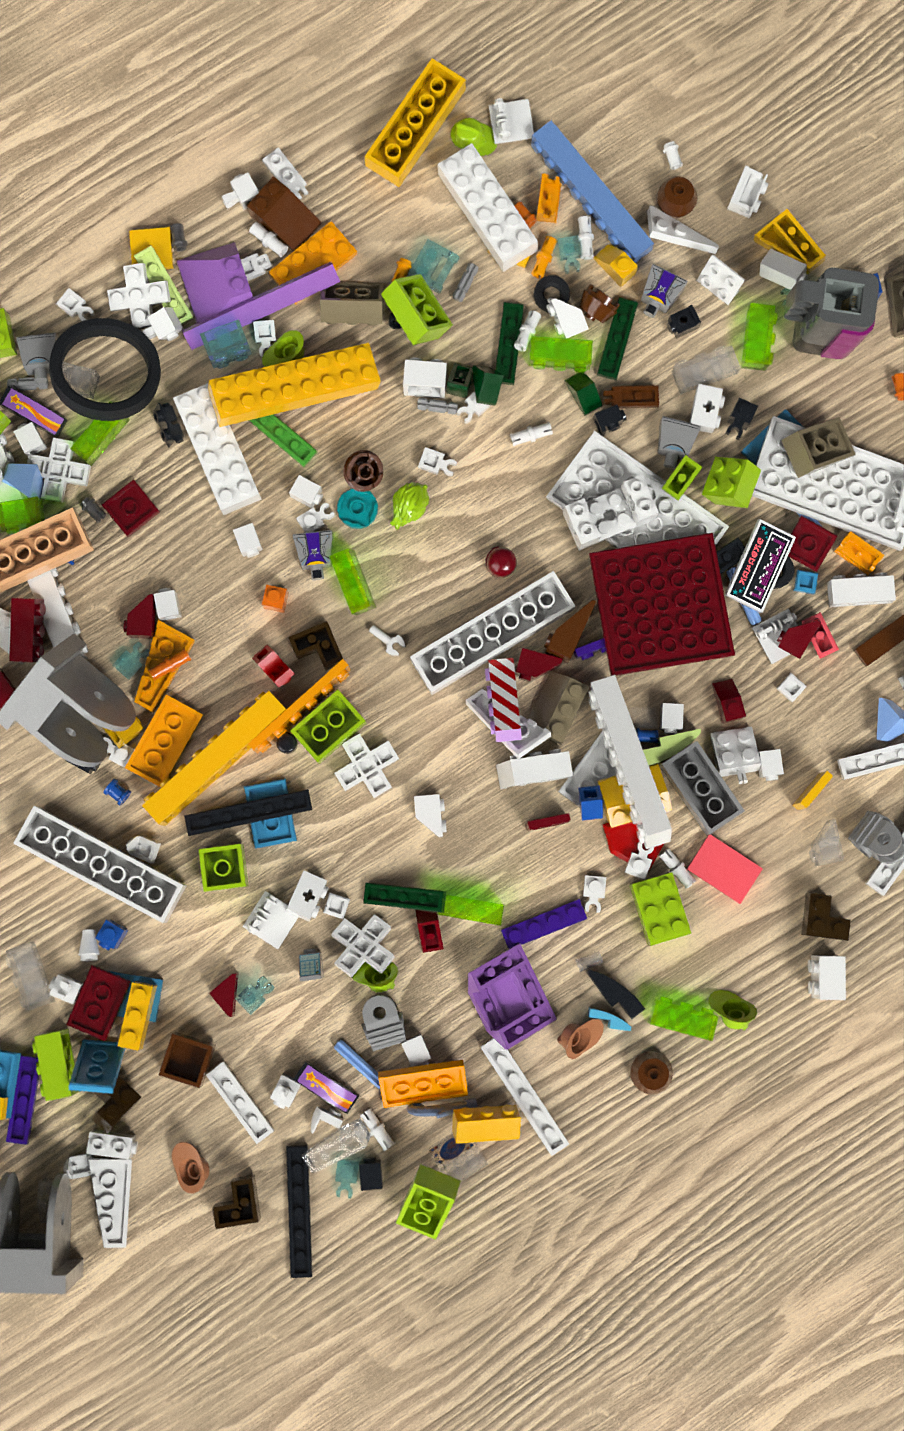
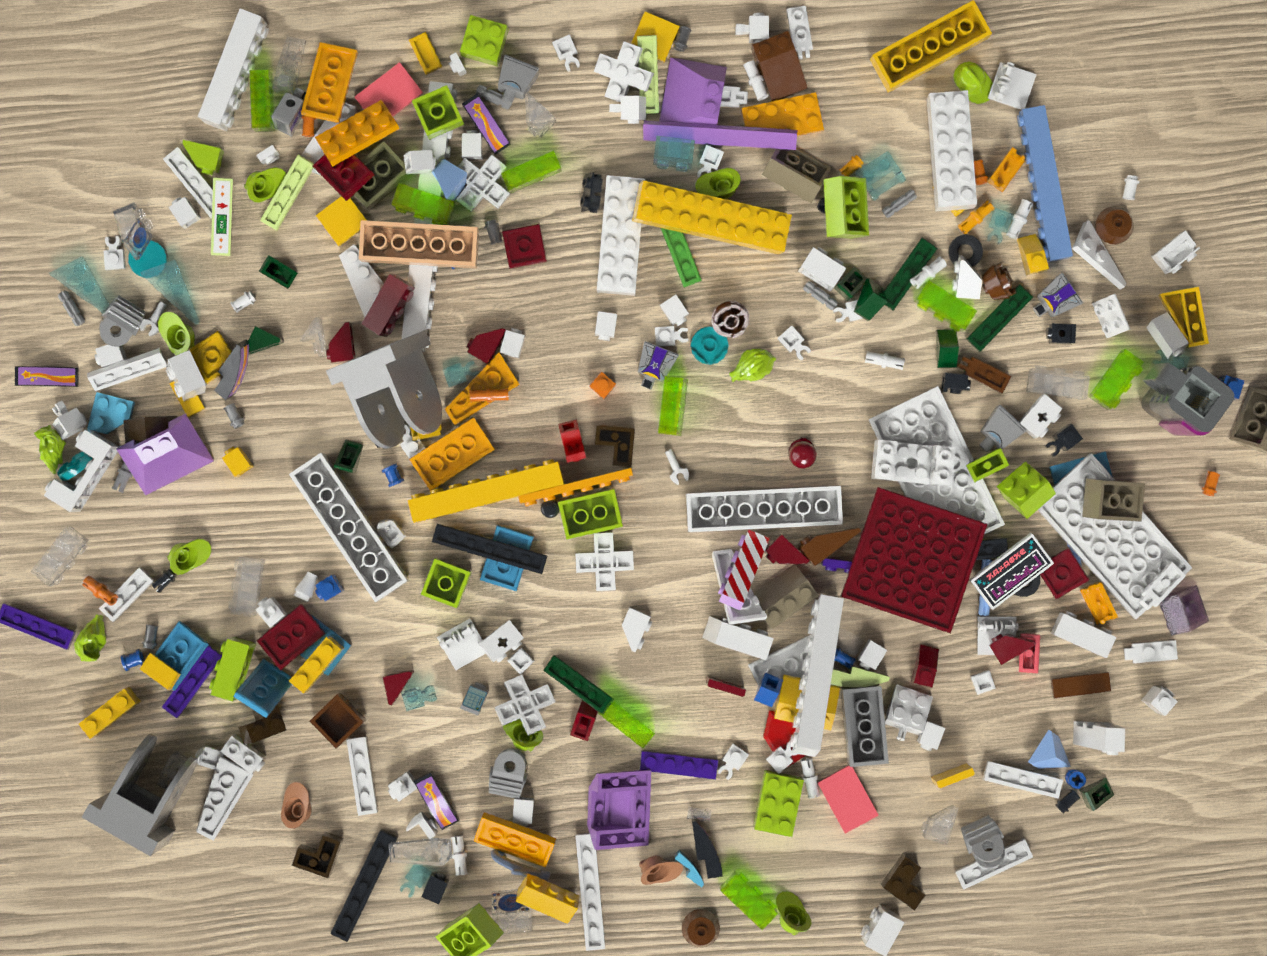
camera: 30 degrees right, 5 degrees up
(65, 797) = (349, 456): none -> dark green slope
(109, 328) = (592, 93): black tyre -> none
(358, 1062) = (472, 794): light blue axle -> none
(805, 582) = (1042, 602): dark azure tile -> none

